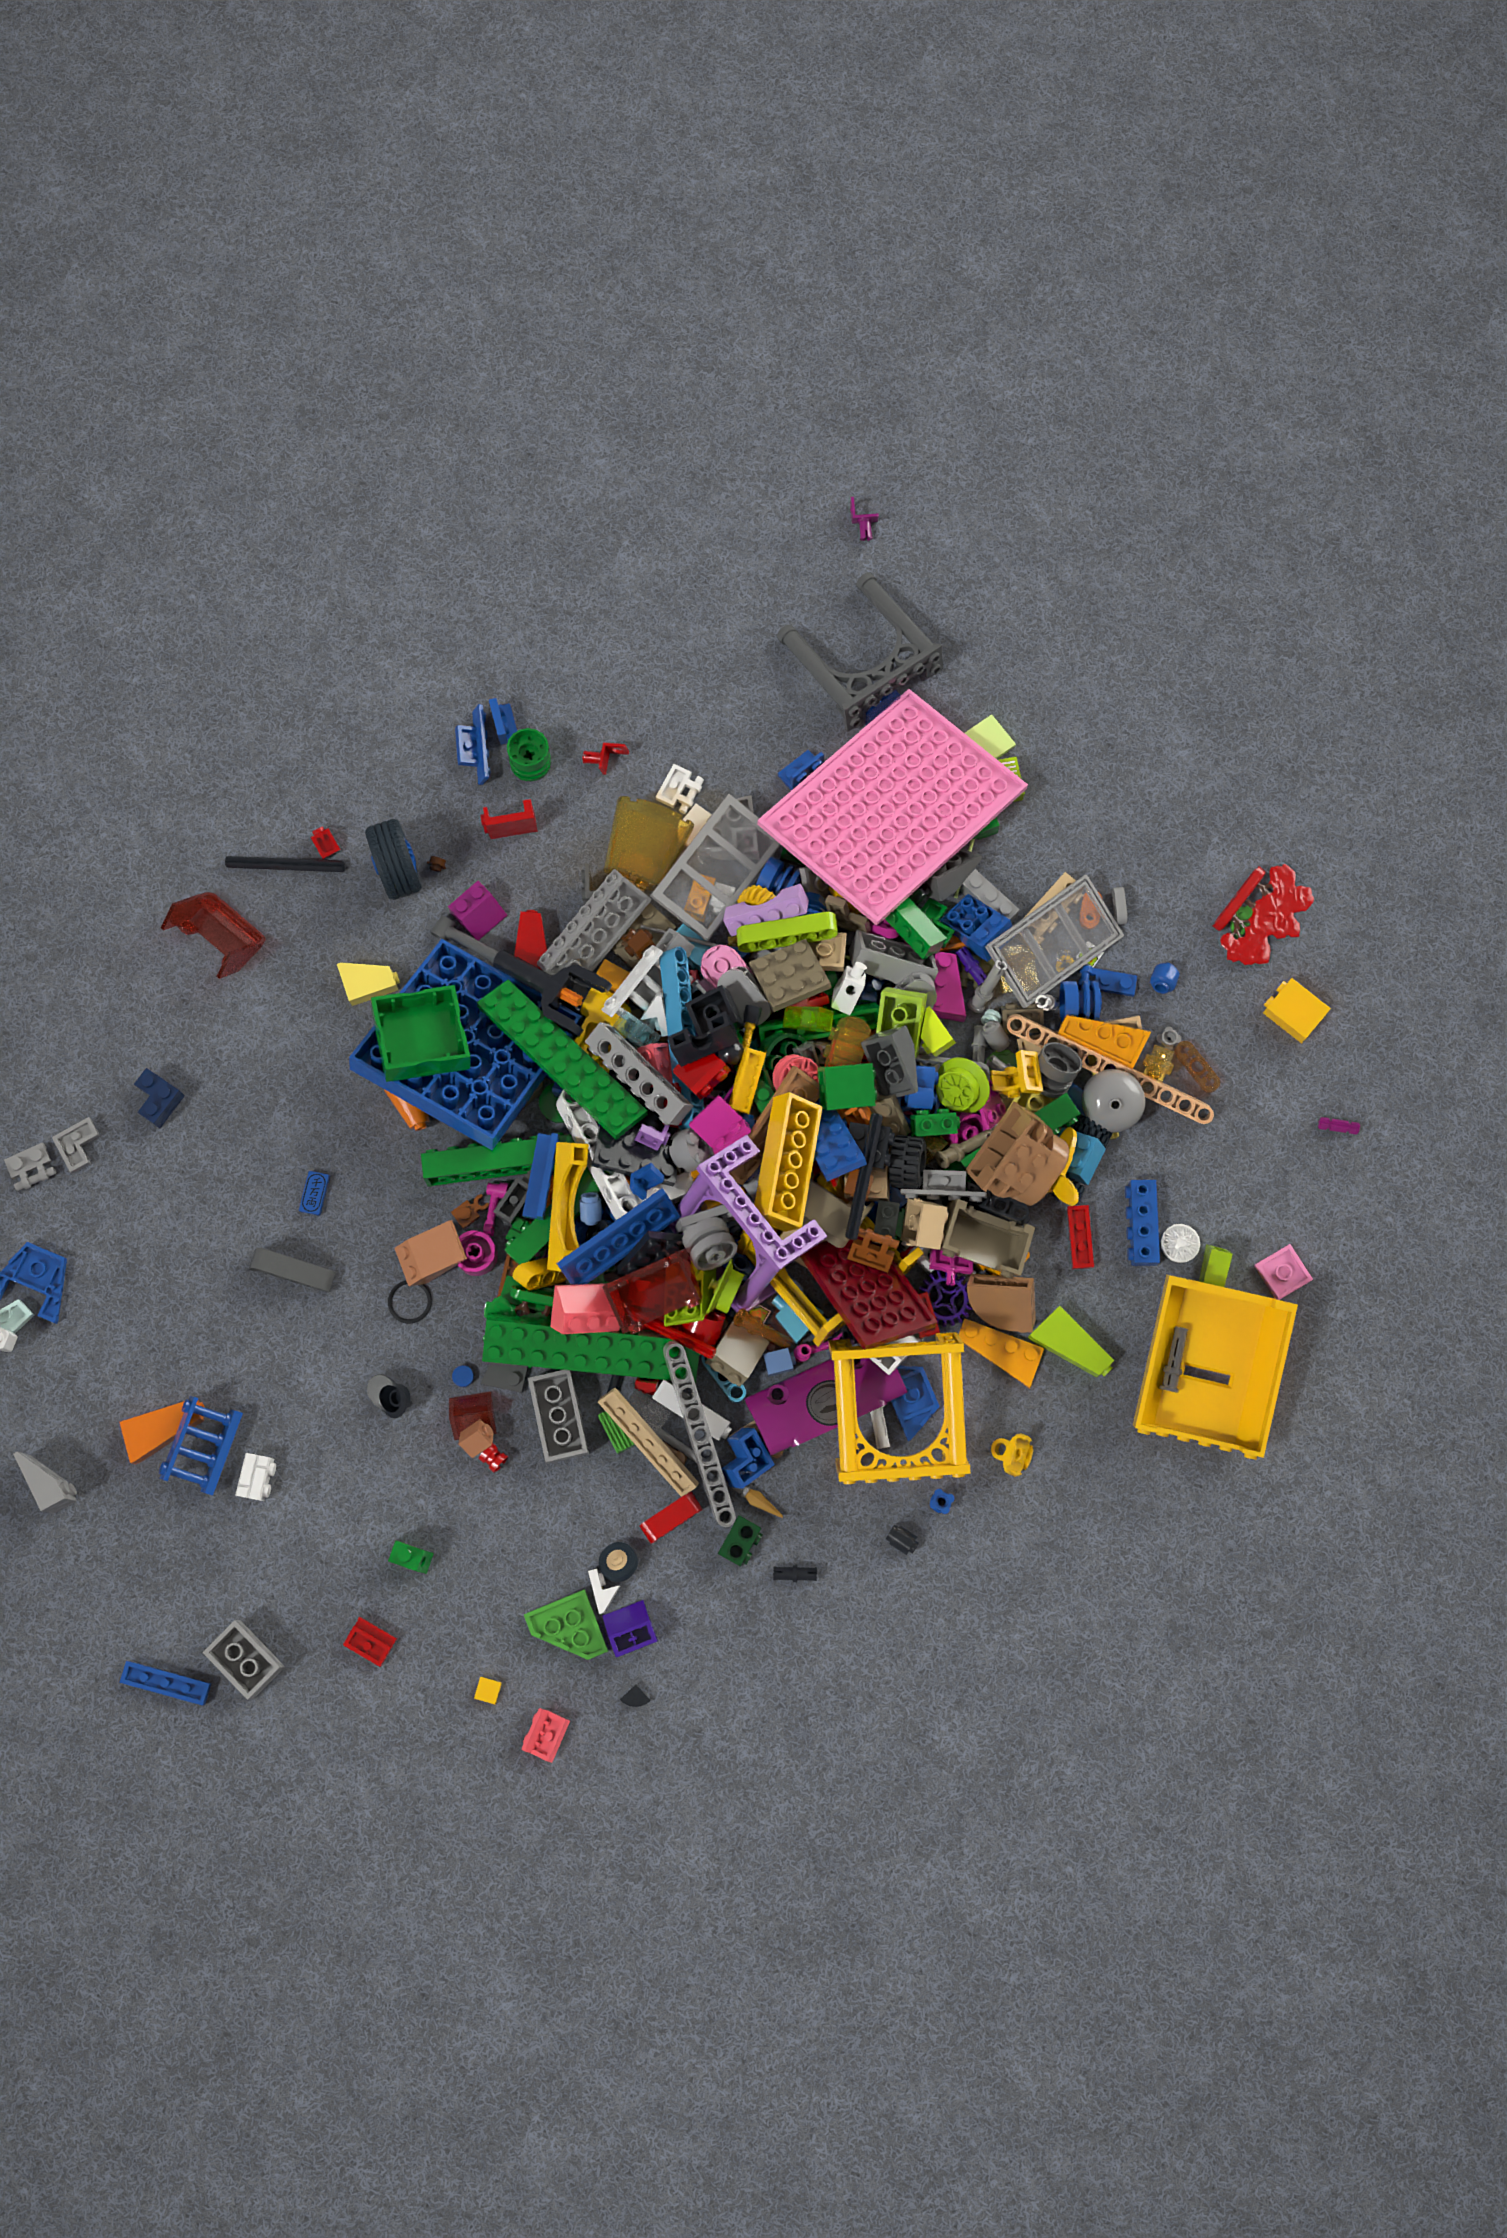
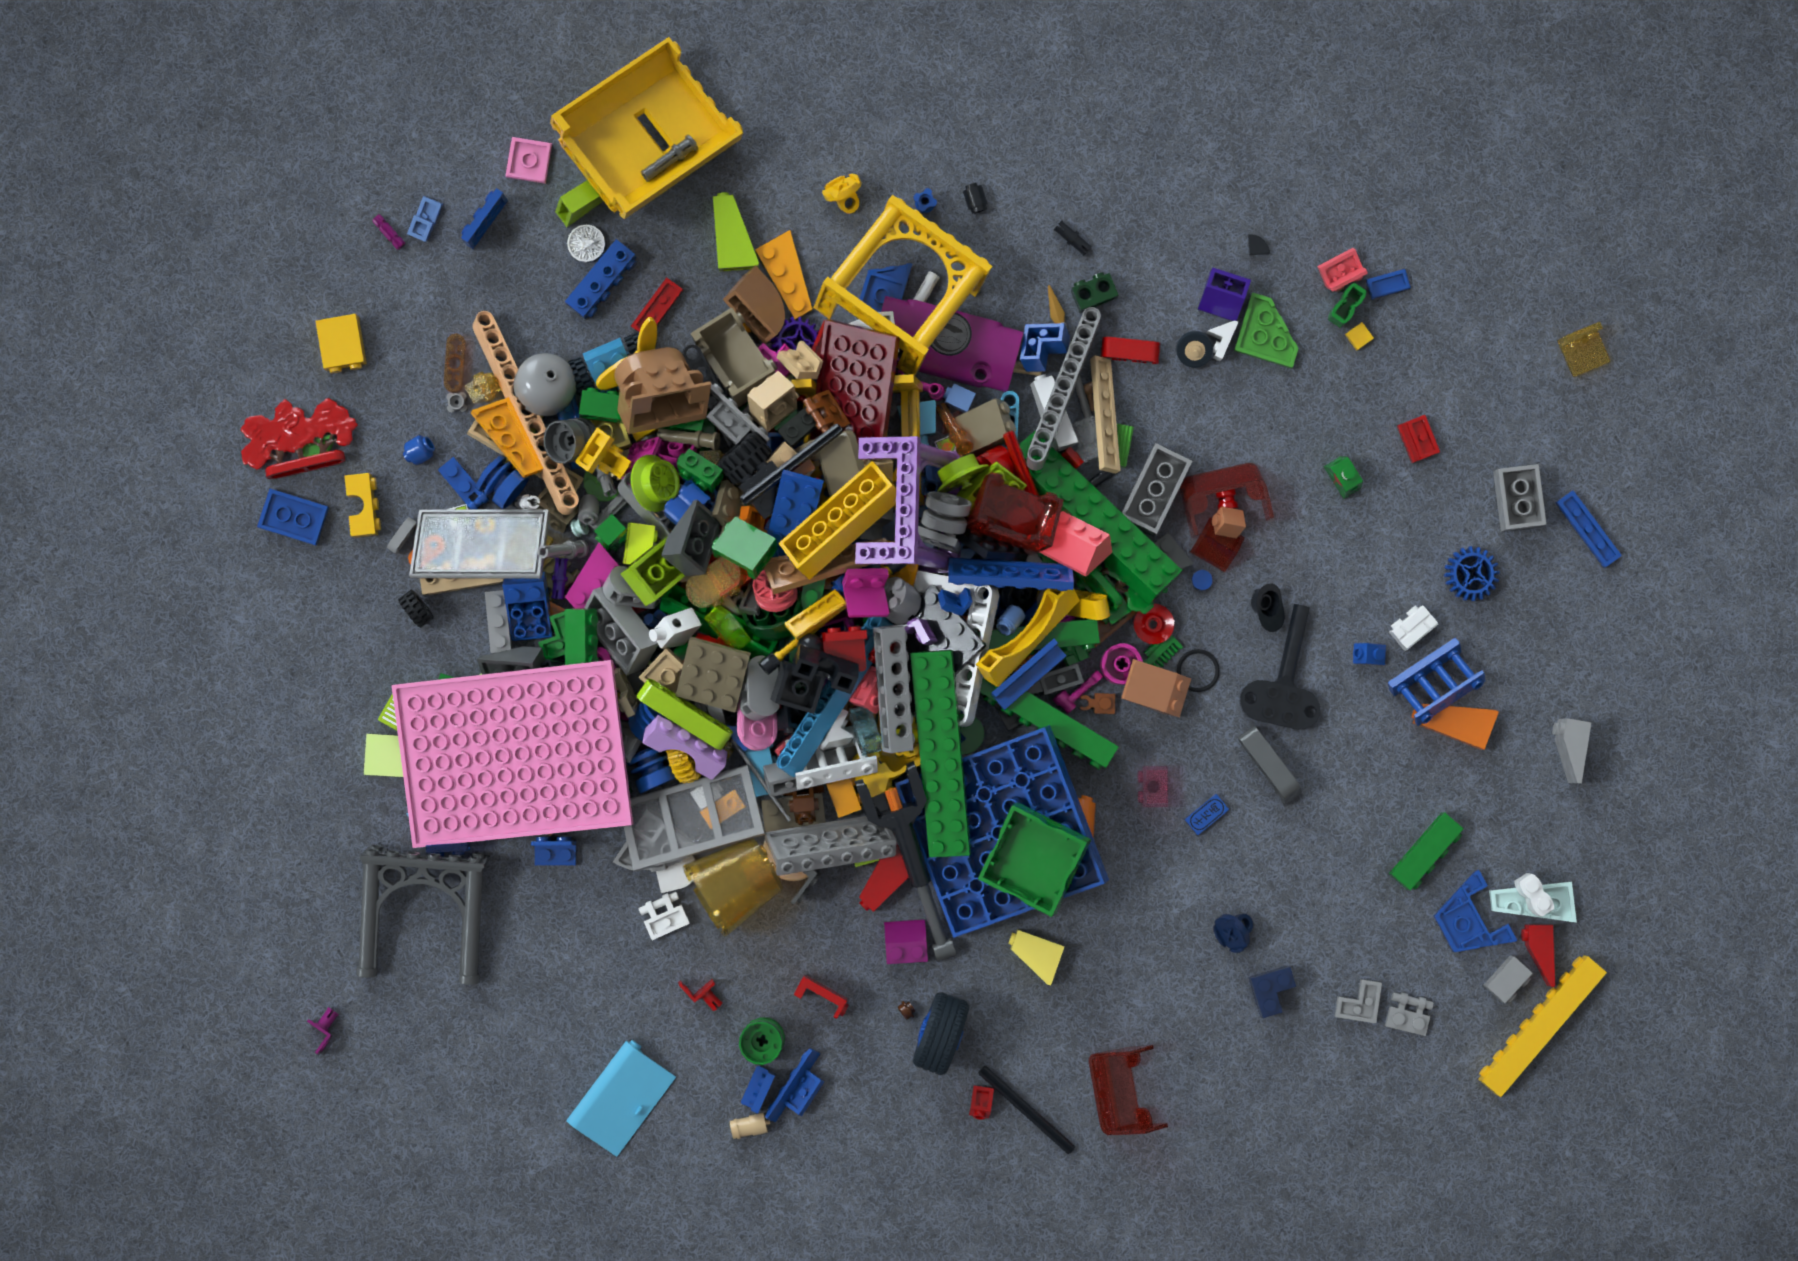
camera: 150 degrees left, 10 degrees up
(109, 1303) = (1426, 851): none -> green brick
(222, 1116) = (1232, 932): none -> dark blue tile
(238, 1553) = (1481, 558): none -> blue gear
(276, 1426) = (1369, 653): none -> blue bracket
(282, 1839) = (1584, 349): none -> clear yellow bracket
(322, 1330) = (1281, 700): none -> black piece
(365, 1170) = (1160, 776): none -> clear pink brick
(455, 1292) = (1155, 651): none -> green piece
(463, 1307) = (1164, 627): none -> red dish
(489, 690) = (751, 1125): none -> tan piece
(497, 1757) = (1388, 284): none -> blue tile
(508, 1468) = (1196, 487): none -> clear red windscreen
(518, 1713) = (1345, 308): none -> green brick
(602, 639) = (621, 1098): none -> medium azure door
(928, 1276) = (801, 362): none -> tan bracket
(961, 1023) = (611, 534): none -> green arch
(1060, 858) = (415, 608): none -> black tyre
(1179, 916) = (365, 522): none -> yellow arch
(1212, 854) = (293, 517): none -> blue plate
(1276, 1192) = (484, 218): none -> blue plate
(1320, 1159) = (425, 219): none -> medium blue slope

